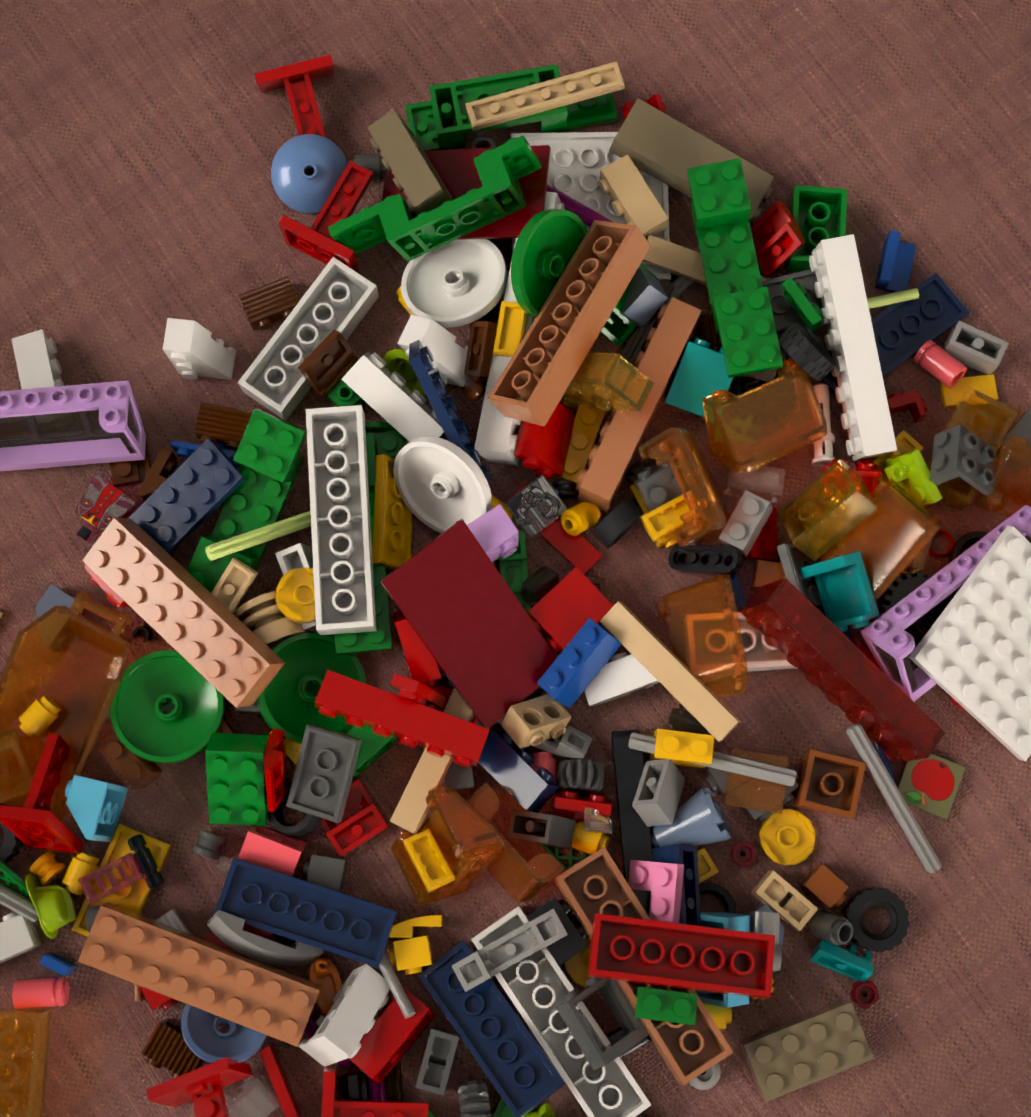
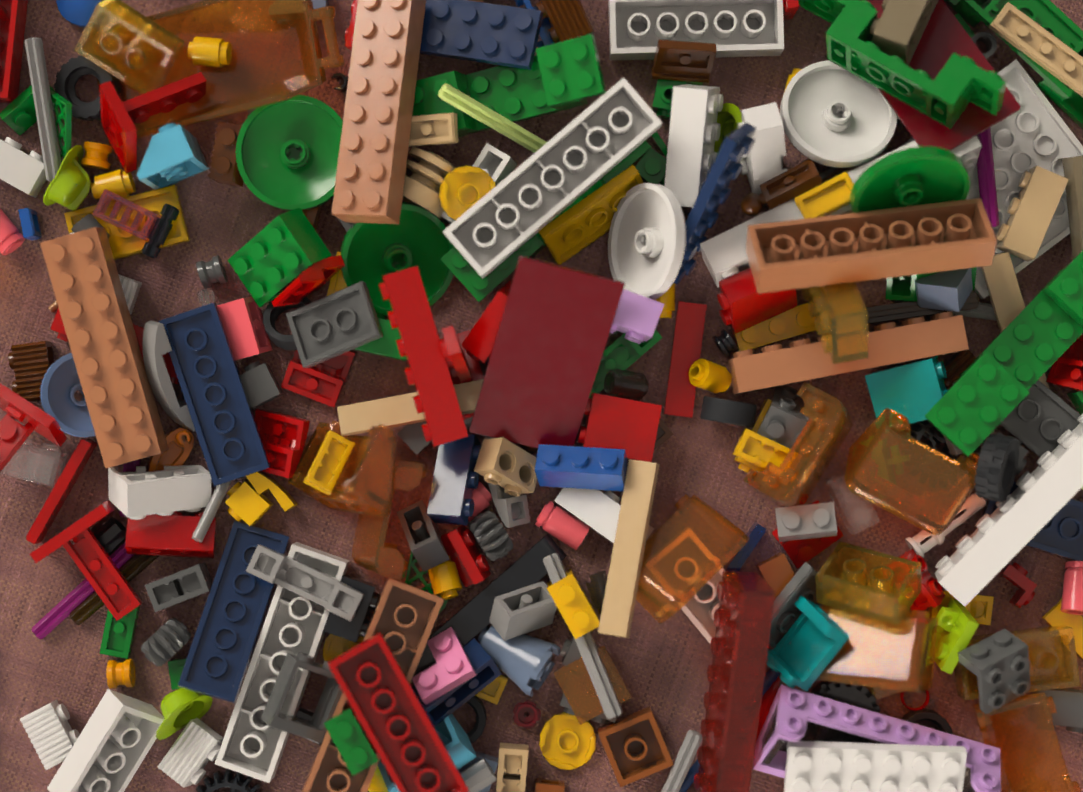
camera: 55 degrees right, 10 degrees up
(383, 885) = (282, 439): none -> red slope
(536, 506) = (692, 331): piece -> none
(596, 823) = (459, 576): clear tile -> none
(613, 714) = (562, 525): none -> coral piece
(697, 557) = (750, 500): black plate -> none
(796, 296) = (1036, 443): green plate -> none

